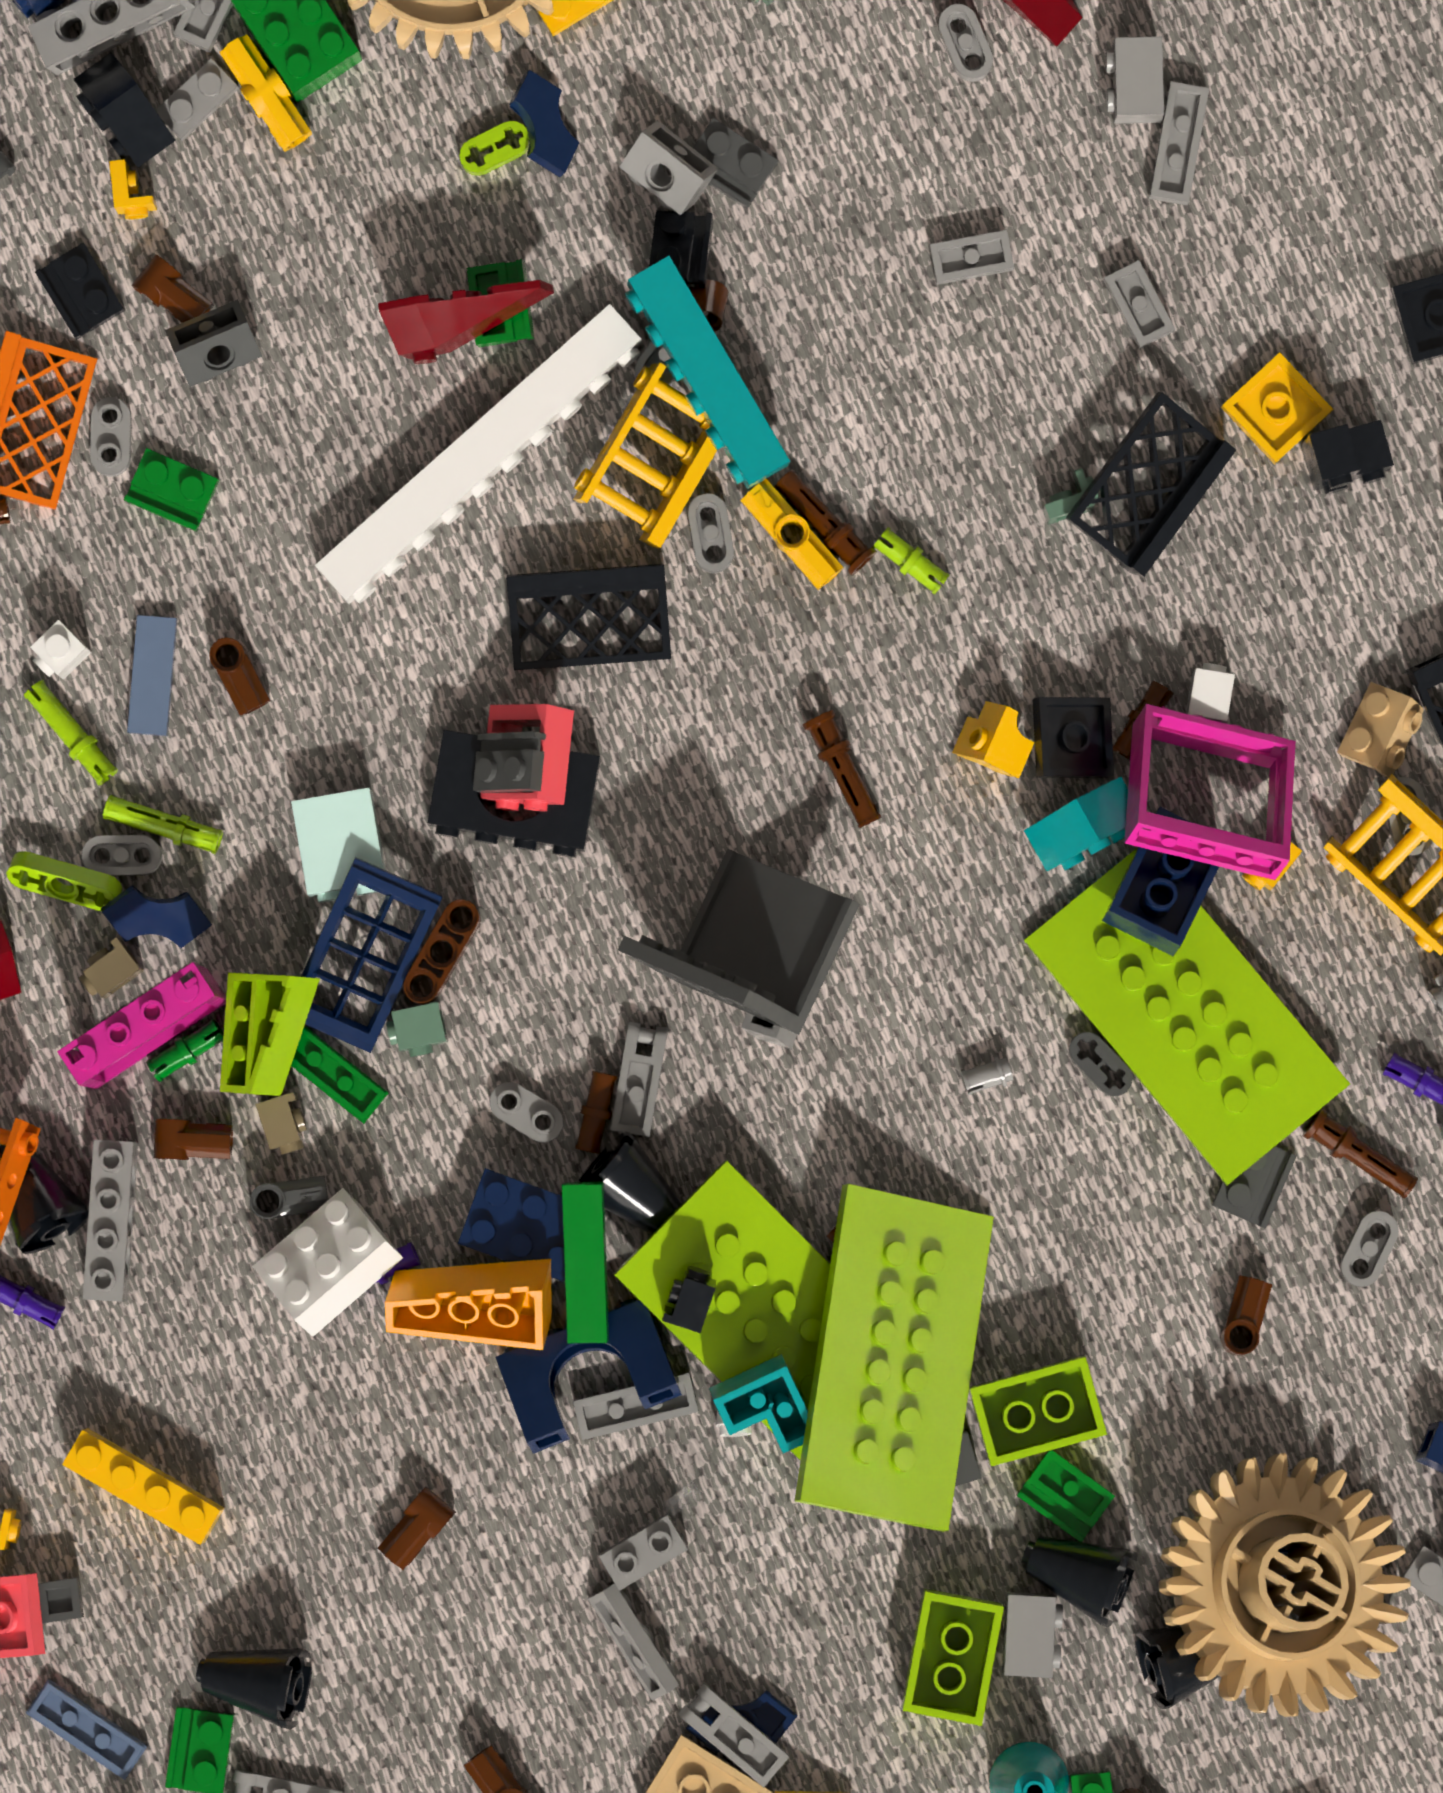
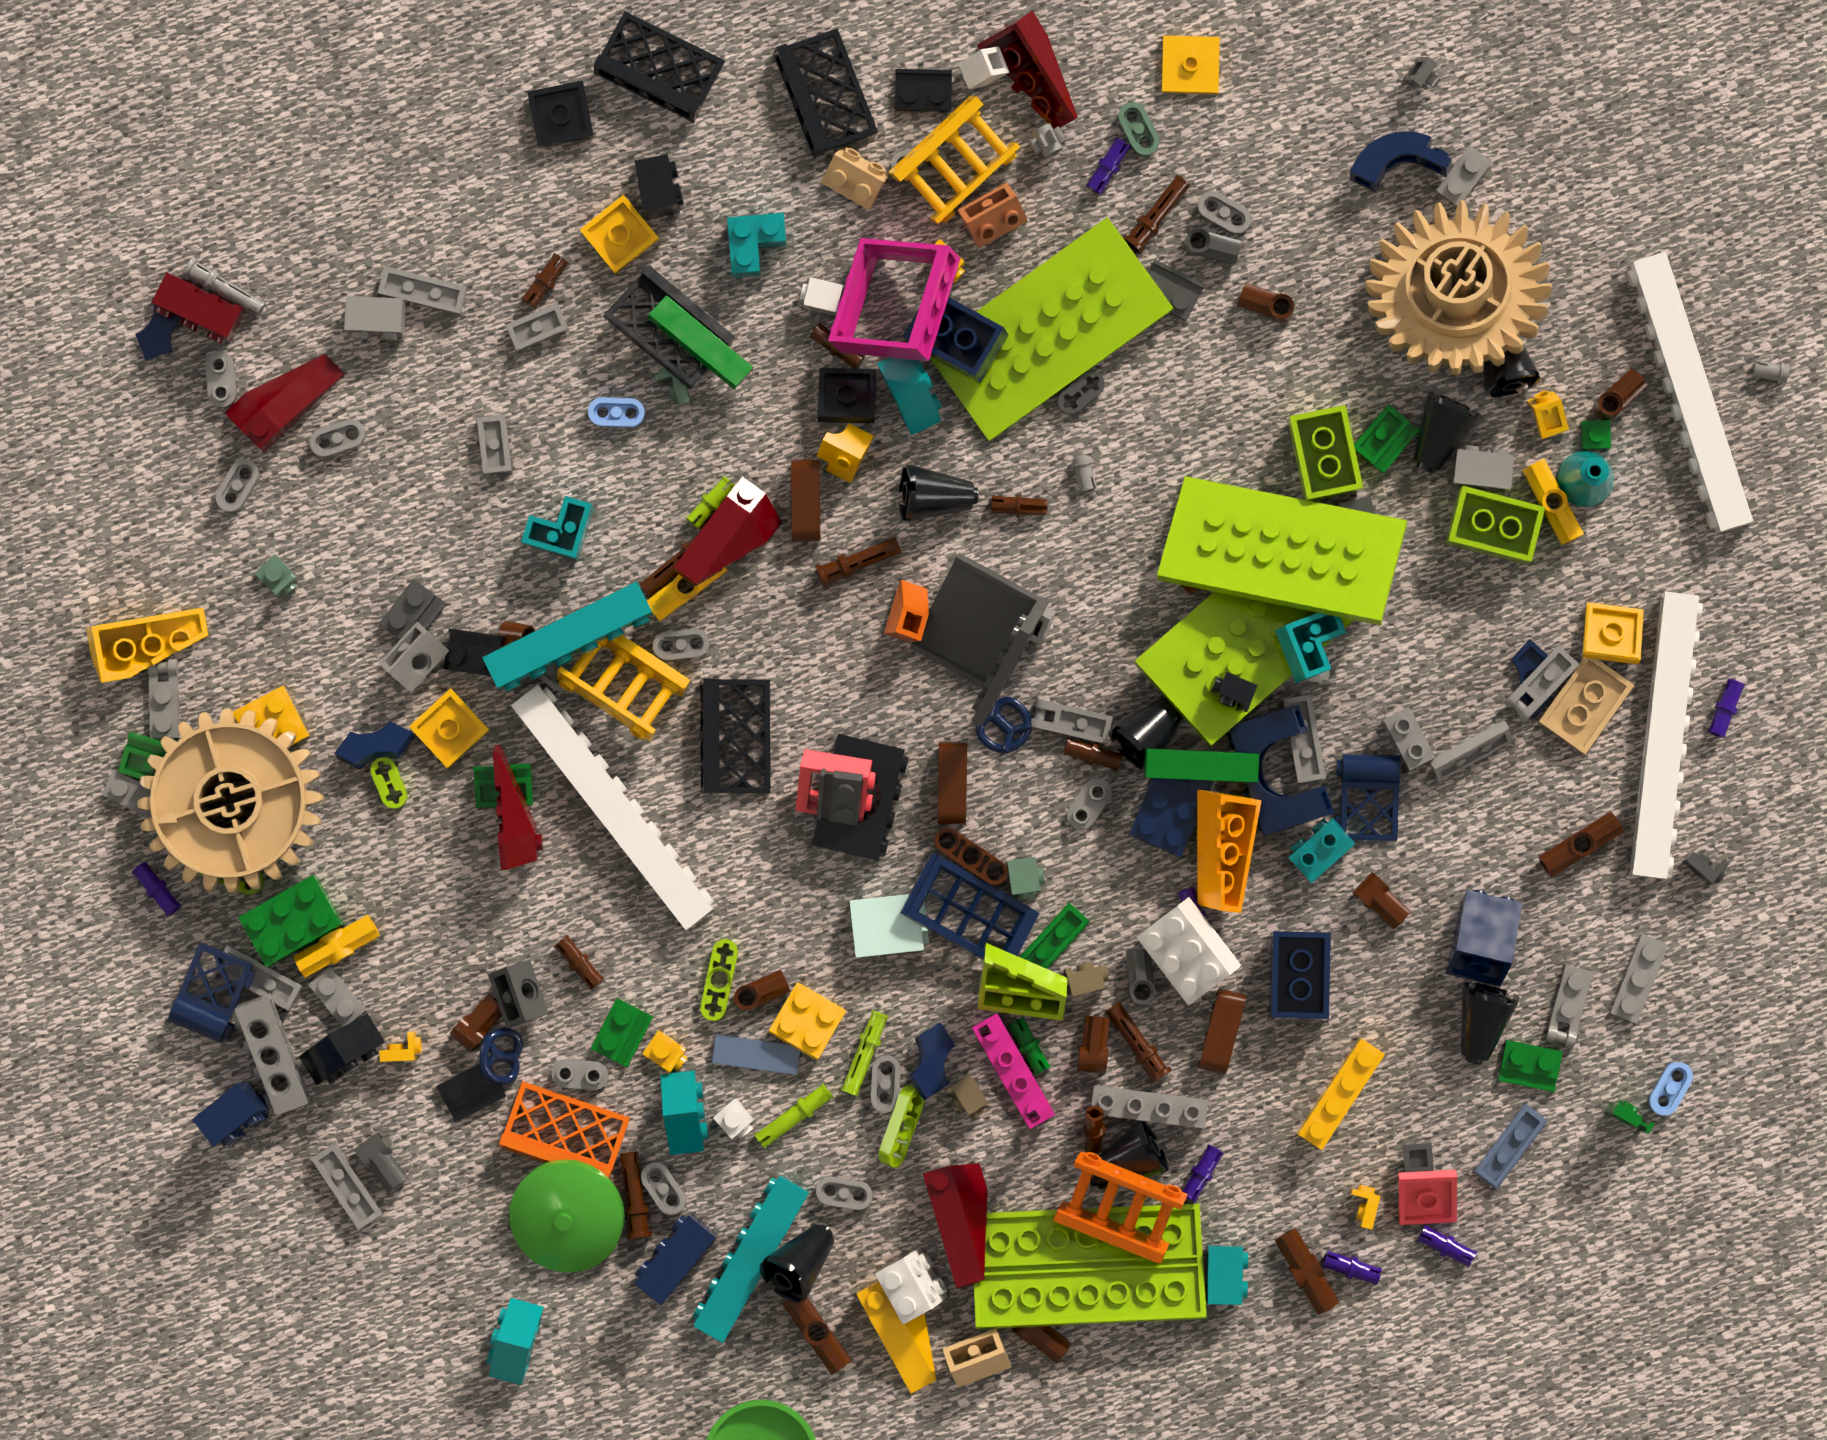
camera: 85 degrees left, 0 degrees up
(63, 578) = (683, 1112): none -> teal brick
(72, 1146) = (1094, 1129): none -> reddish brown pin
(128, 325) = (500, 1055): none -> dark blue piece
(147, 551) = (665, 1052): none -> yellow bracket
(178, 1216) = (1117, 1013): none -> reddish brown pin
(201, 741) = (807, 1021): none -> yellow plate
(221, 623) = (711, 970): none -> lime beam
(221, 1316) = (1222, 1031): none -> reddish brown beam
(264, 423) = (578, 962): none -> reddish brown pin
(304, 1419) = (1299, 975): none -> dark blue brick
(373, 1676) = (1484, 938): none -> slope
(481, 1439) = (1321, 849): none -> teal brick
(543, 919) = (952, 782): none -> reddish brown beam
(574, 224) = (449, 728): none -> yellow plate
(592, 1494) = (1369, 772): none -> dark blue piece
(626, 990) = (1007, 728): none -> dark blue piece
(775, 843) = (908, 613): none -> orange slope
(848, 360) = (566, 535): none -> teal brick
(876, 596) = (736, 528): none -> dark red wedge
(923, 689) = (805, 500): none -> reddish brown beam
(936, 987) = (1019, 505): none -> reddish brown axle
(943, 867) = (933, 494): none -> black cone
(968, 1751) = (1561, 519): none -> yellow piece
(1028, 422) = (616, 412): none -> light blue plate
(1116, 1724) = (1548, 414): none -> yellow bracket
(1132, 528) = (700, 342): none -> green tile
(1205, 310) = (544, 280): none -> reddish brown pin
(1285, 583) = (750, 234): none -> teal brick
(1318, 1239) = (1215, 246): none -> dark grey piece
(1341, 923) = (992, 215): none -> nougat brick

